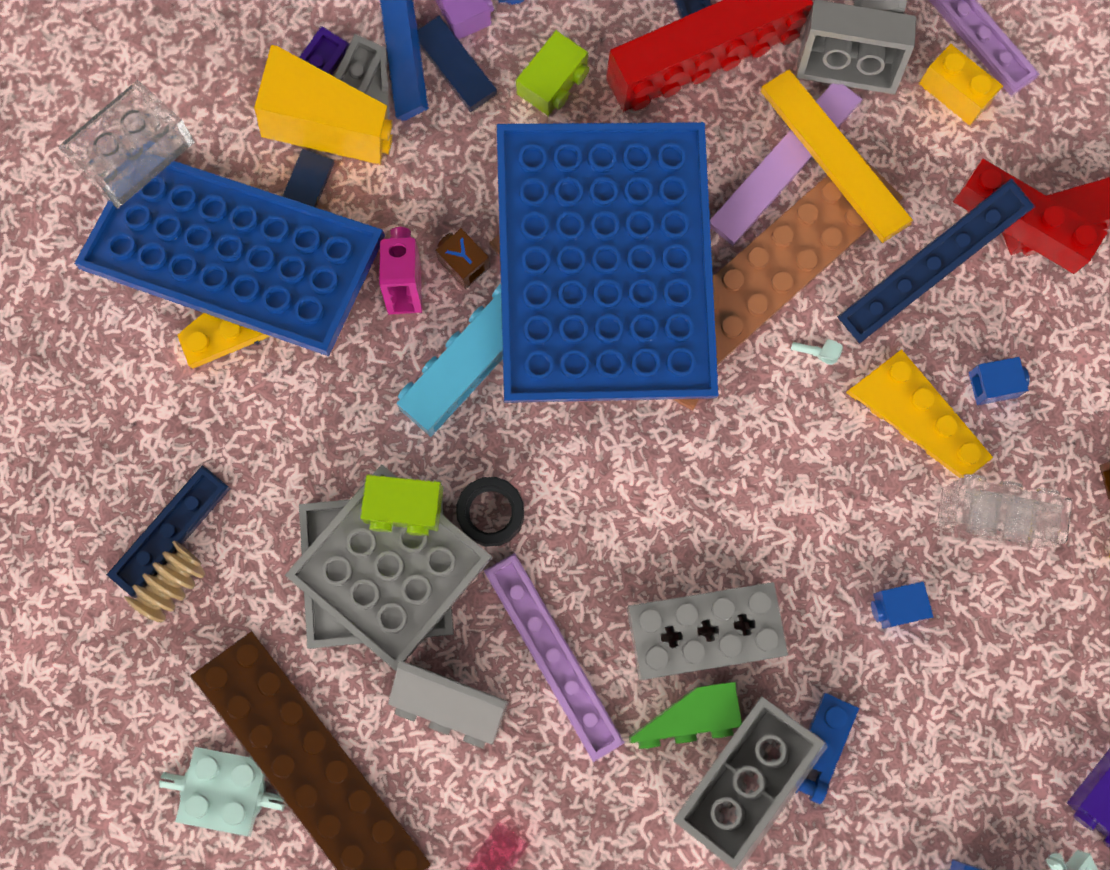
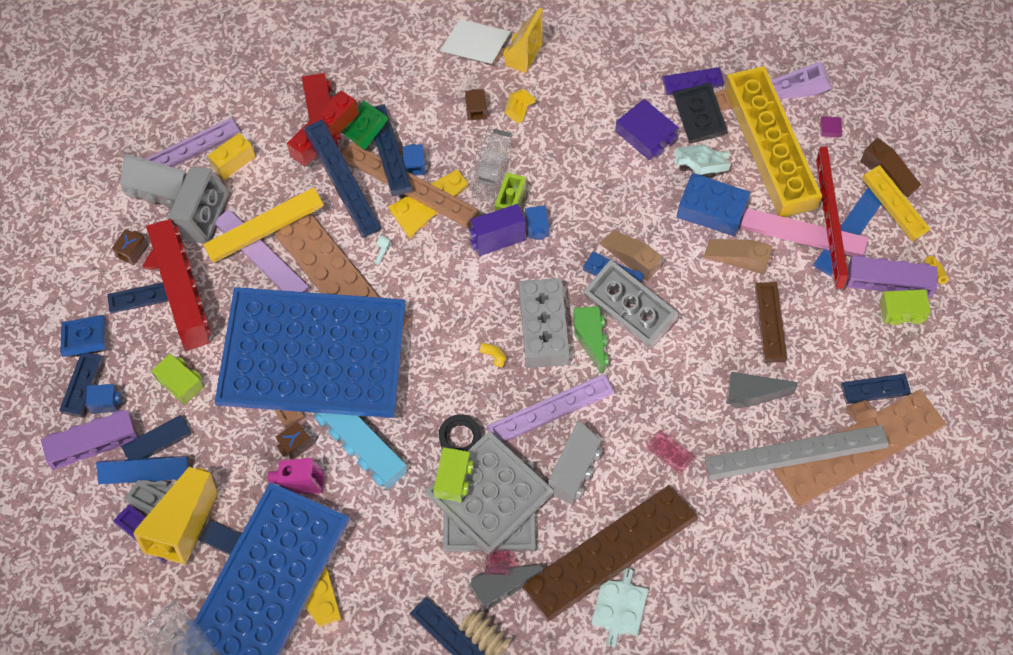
camera: 85 degrees left, 15 degrees down
(247, 597) = (493, 589): none -> dark grey slope
(271, 592) = (498, 563): none -> clear pink tile
(646, 557) = (496, 352): none -> yellow arm
(863, 780) = (633, 253): none -> medium nougat slope
(872, 536) = (497, 230): none -> dark purple brick
(943, 553) = (511, 191): none -> lime brick
(945, 380) = (421, 190): none -> nougat tile
(1010, 334) = (391, 158): none -> dark blue tile
(1053, 289) = (365, 125): none -> green plate

